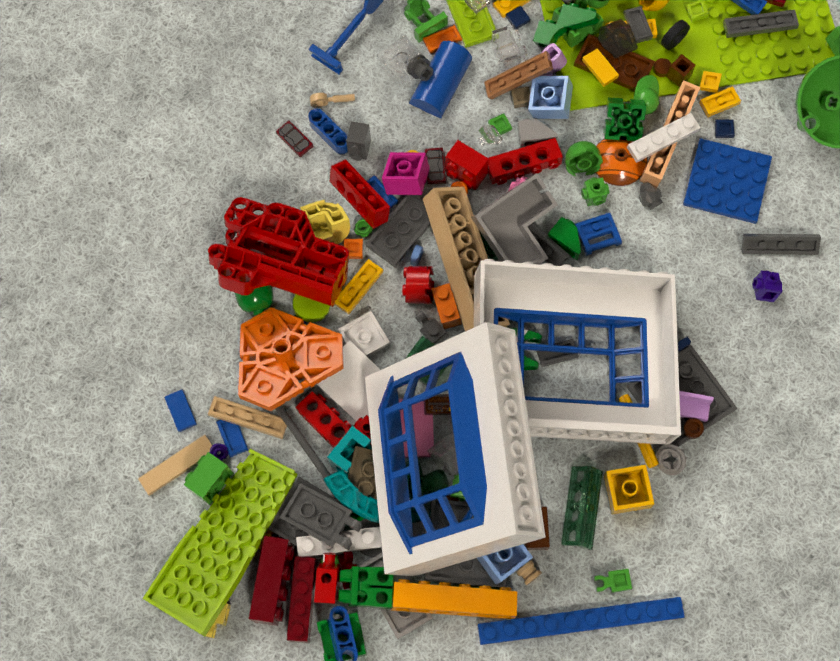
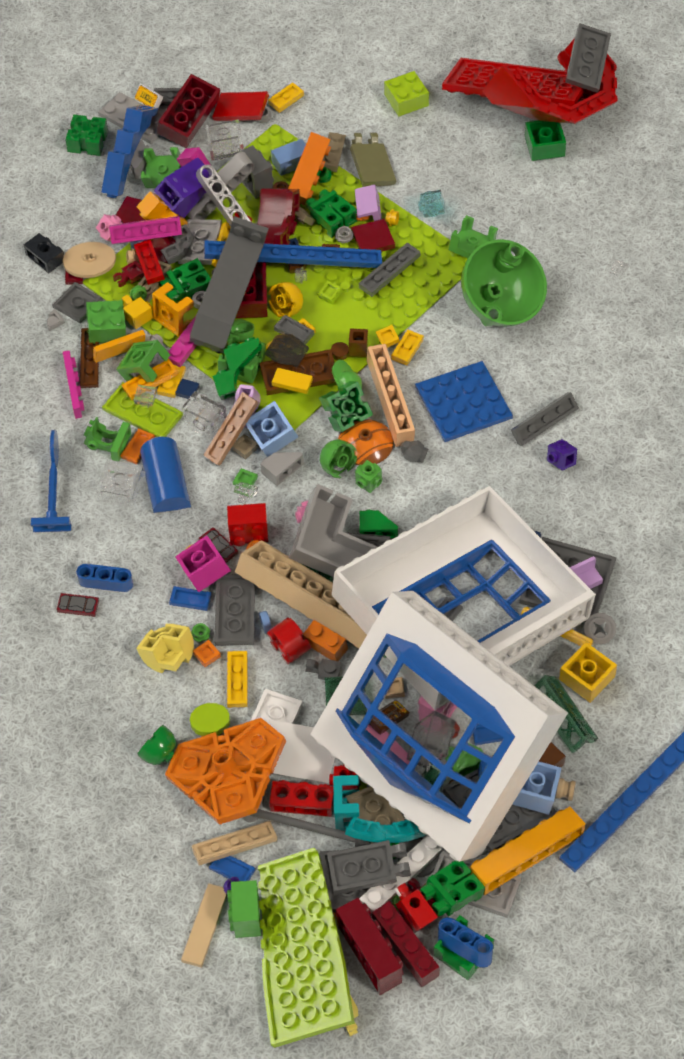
camera: 40 degrees left, 15 degrees down
(180, 410) = (169, 881): blue tile -> none
(277, 252) = (143, 702): red connector -> none
(321, 99) = (75, 558): tan piece -> none
(358, 141) = (139, 565): dark grey brick -> none
(359, 194) = (176, 605): red brick -> none
(420, 68) = (144, 475): dark grey piece -> none
(529, 154) = (292, 483): red brick -> none
(596, 228) = (393, 503): blue plate -> none
(617, 581) = (636, 745): bright green plate -> none
(663, 137) = (390, 398): white plate -> none
(675, 34) = (330, 319): black tyre -> none
(693, 428) = (601, 593): reddish brown tile -> none
(724, 128) = (427, 365): dark blue tile -> none

